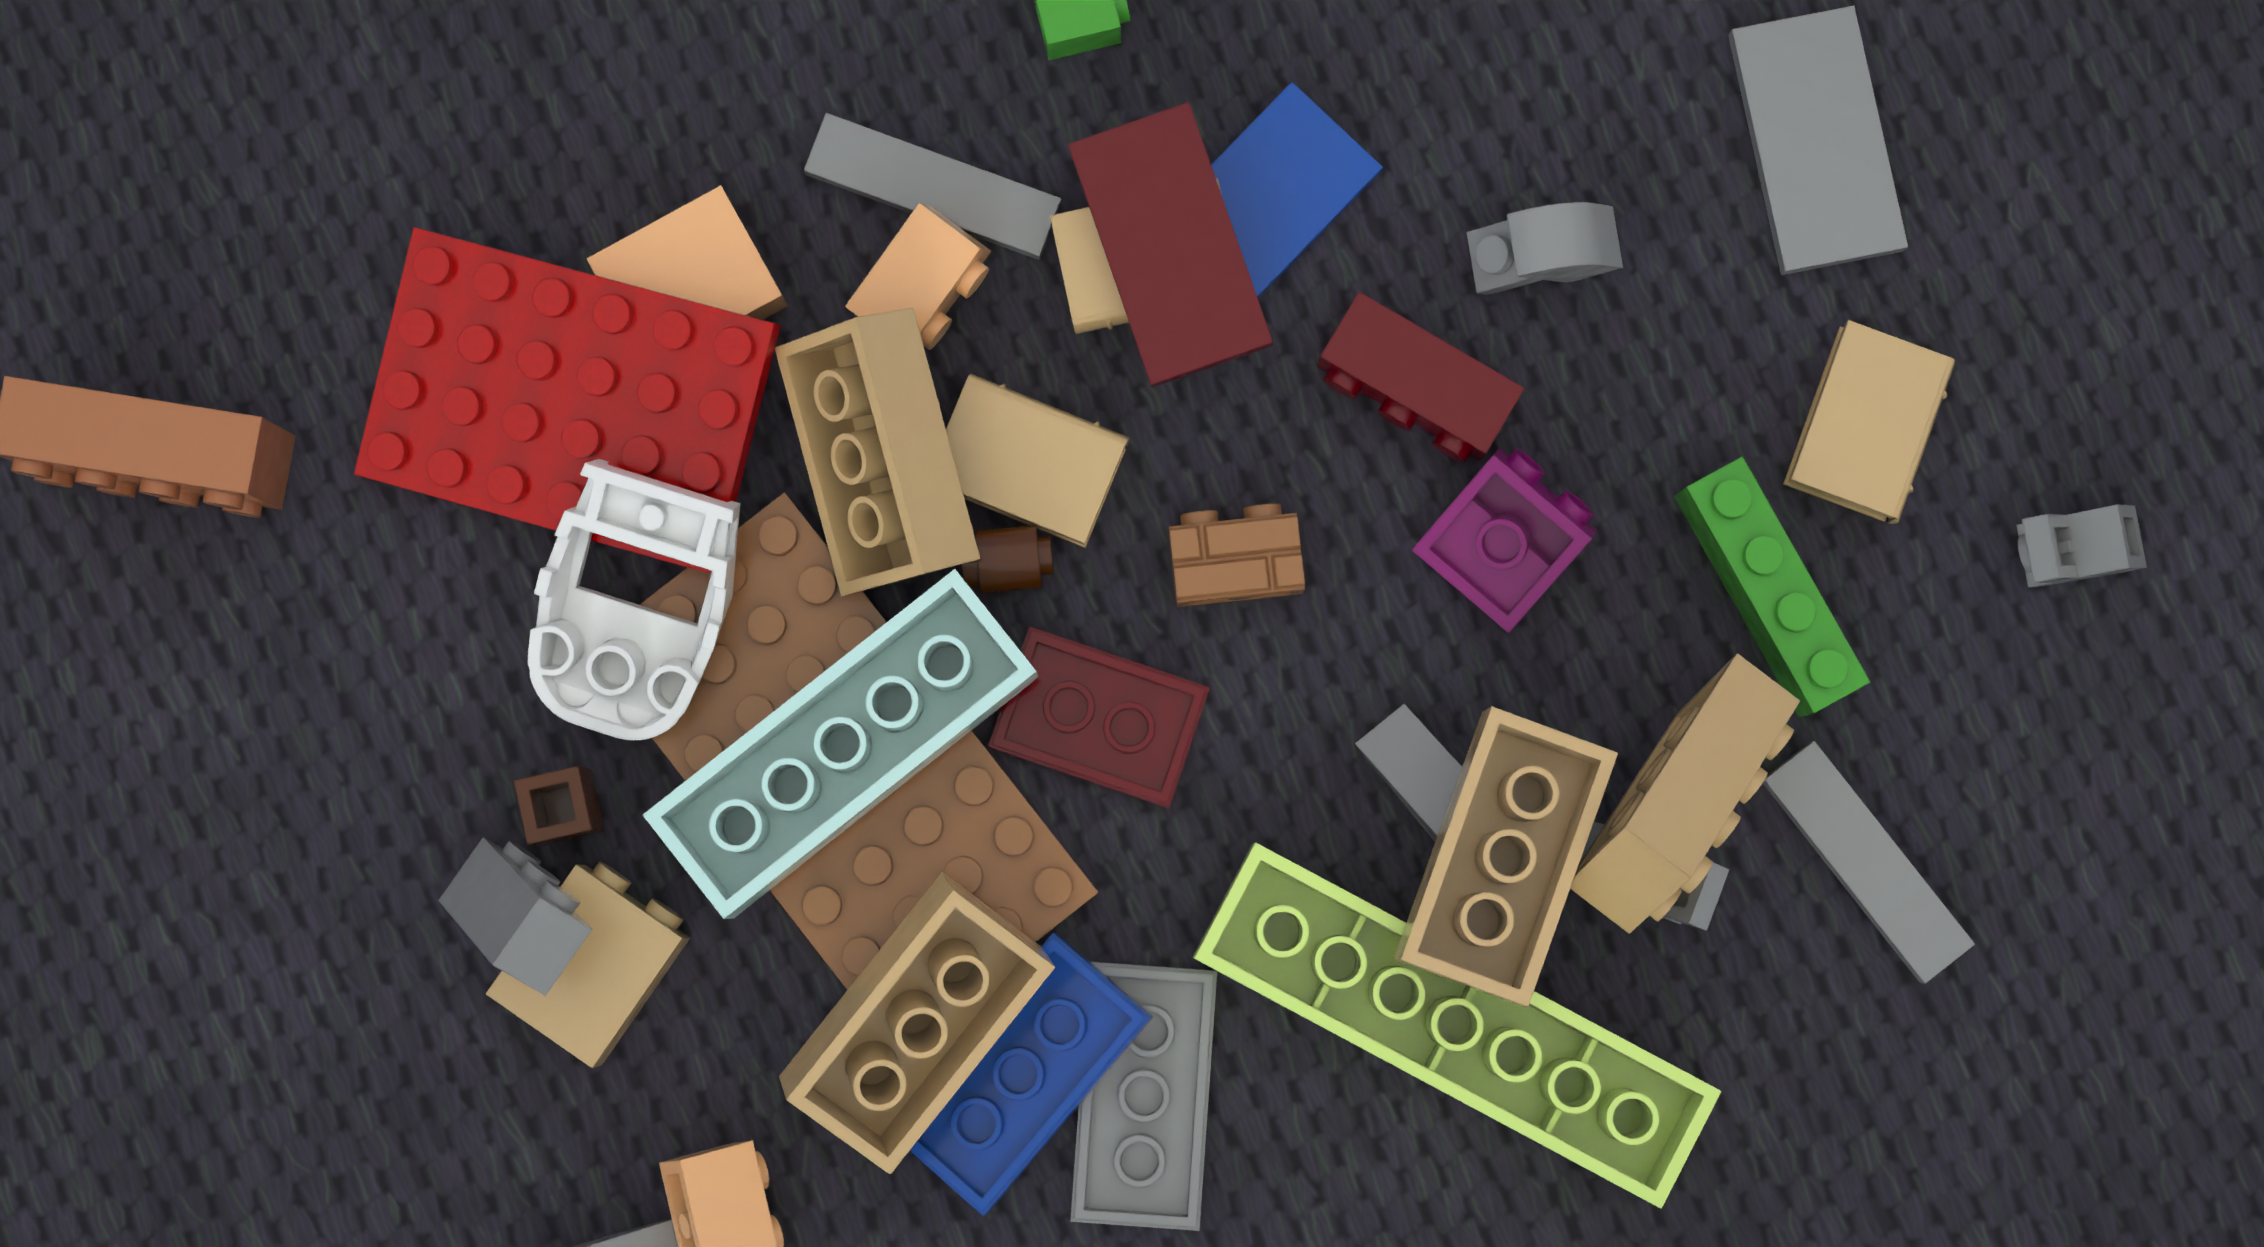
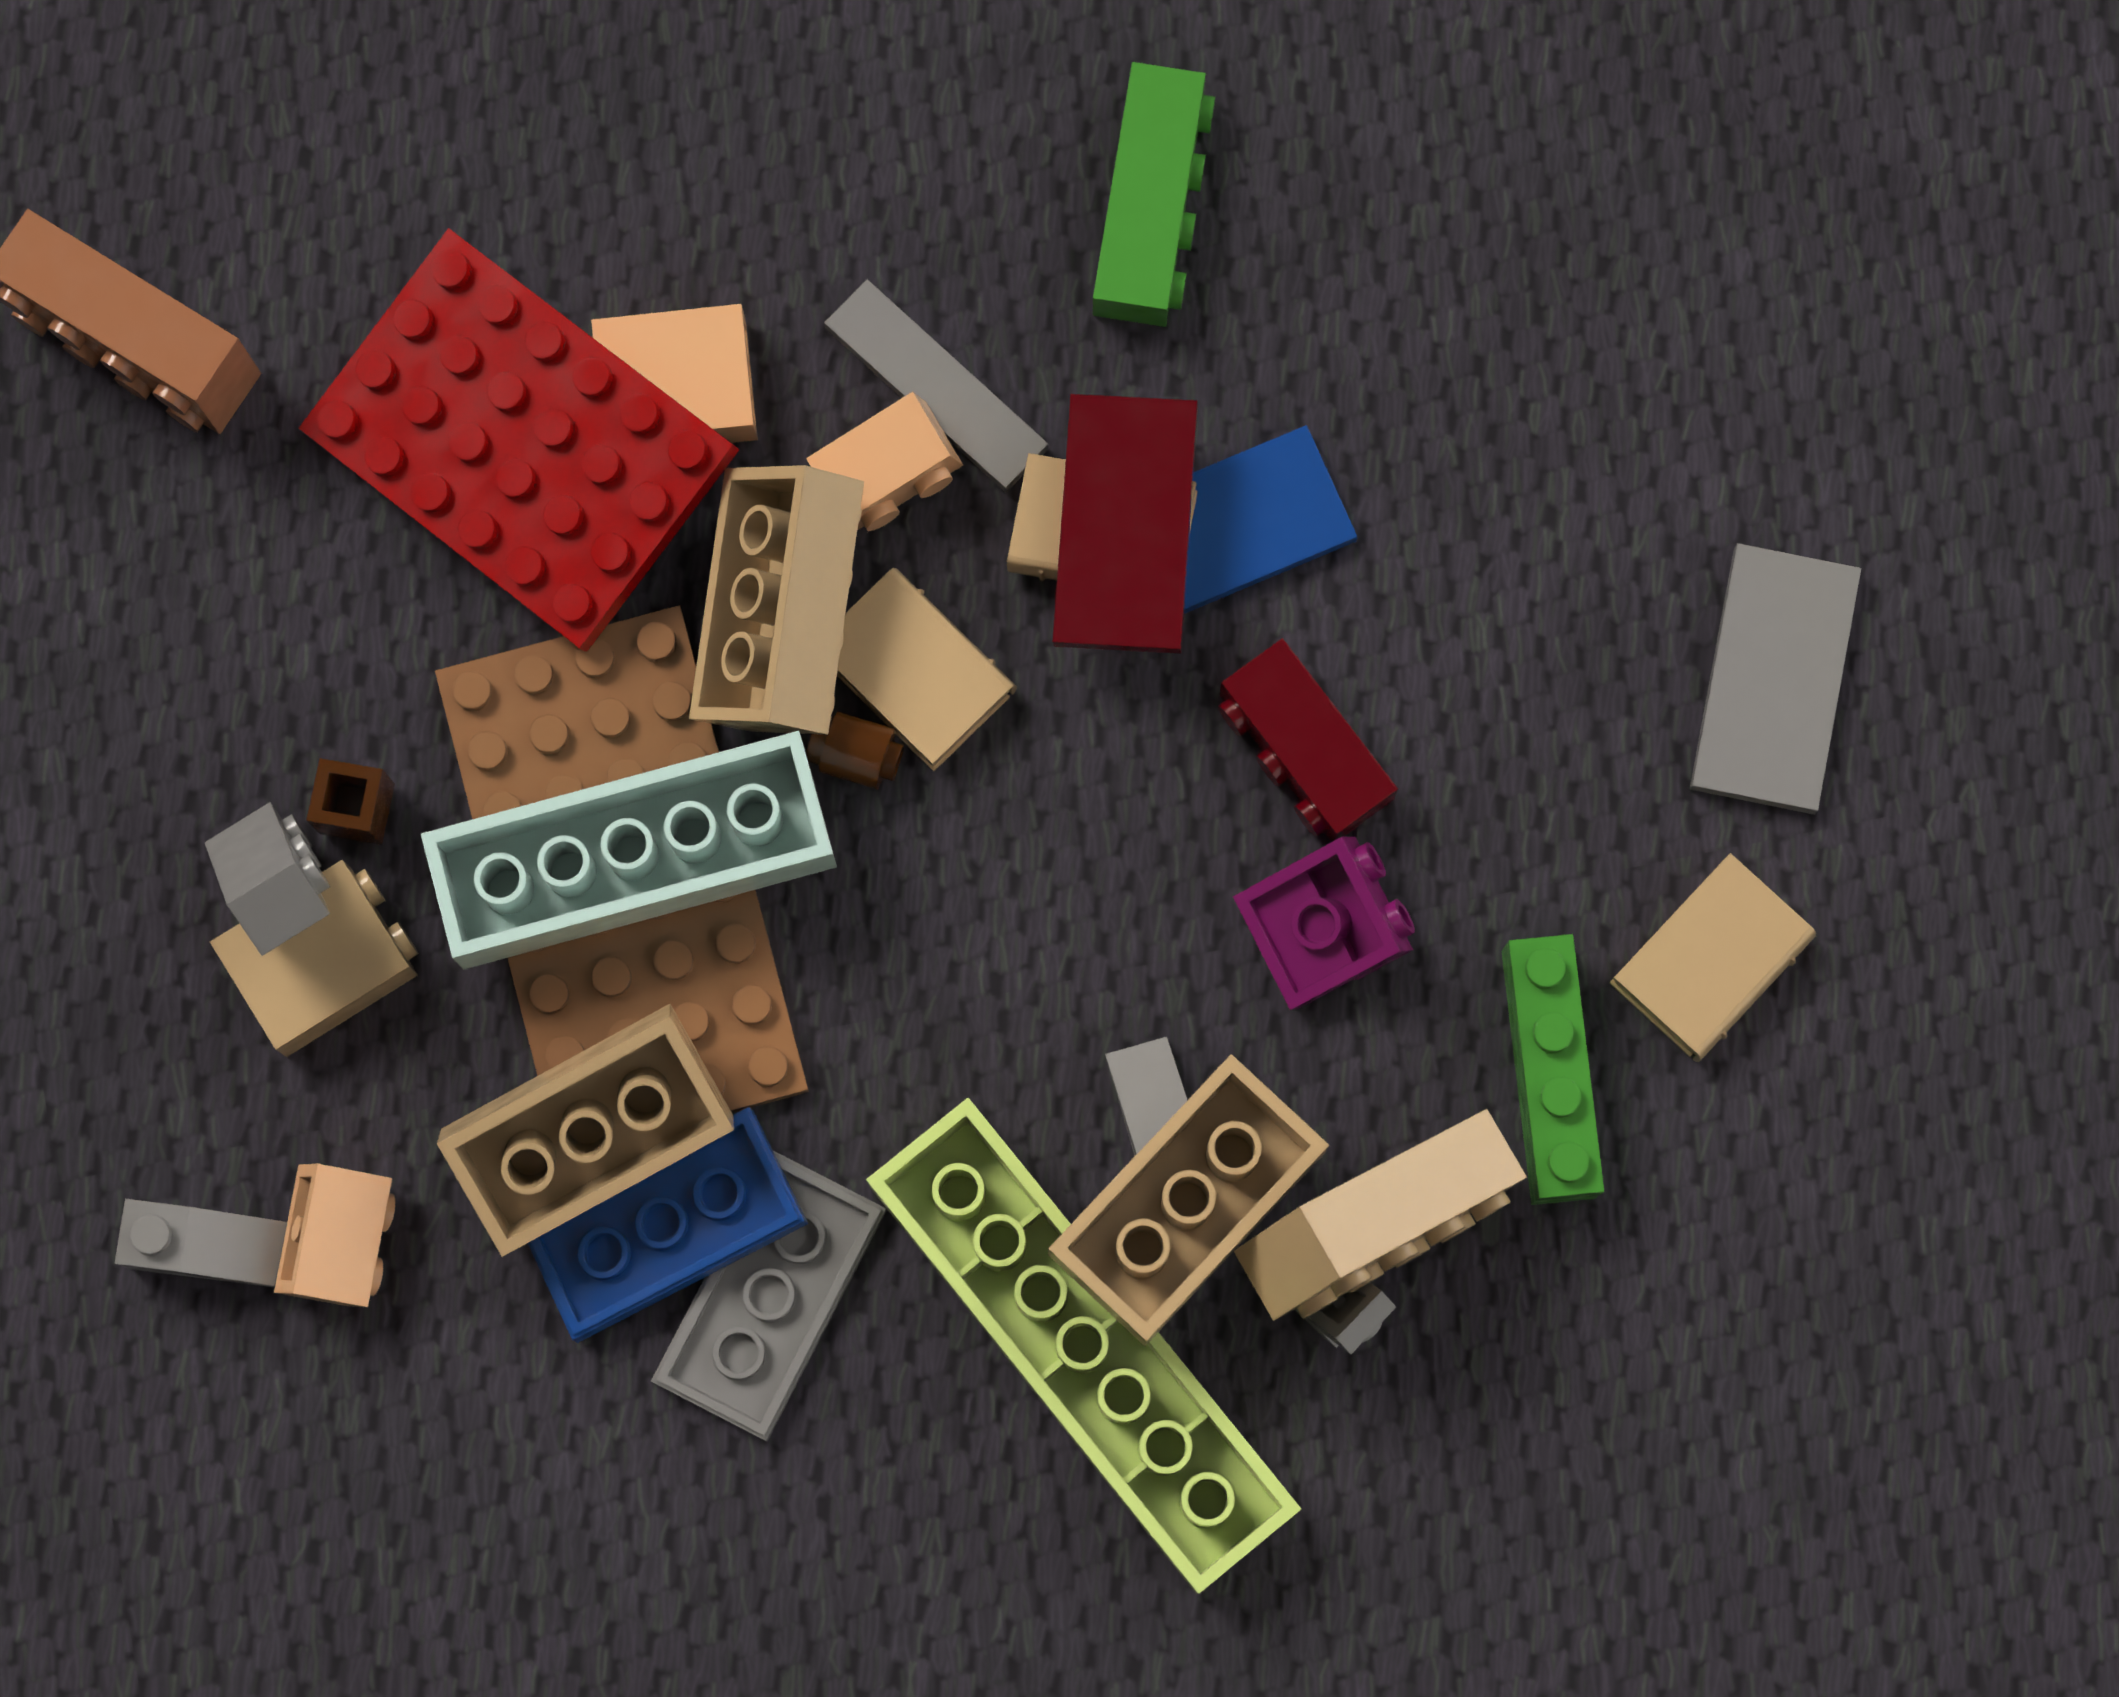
camera: 25 degrees right, 5 degrees down
(612, 659) = (454, 687): white slope -> none
(1101, 718) = (880, 932): dark red tile -> none
(1236, 557) = (1066, 835): medium nougat brick -> none
(1545, 244) = (1477, 666): light grey brick -> none
(1867, 862) = (1538, 1365): light grey tile -> none
(2080, 545) = (1860, 1151): light grey brick -> none

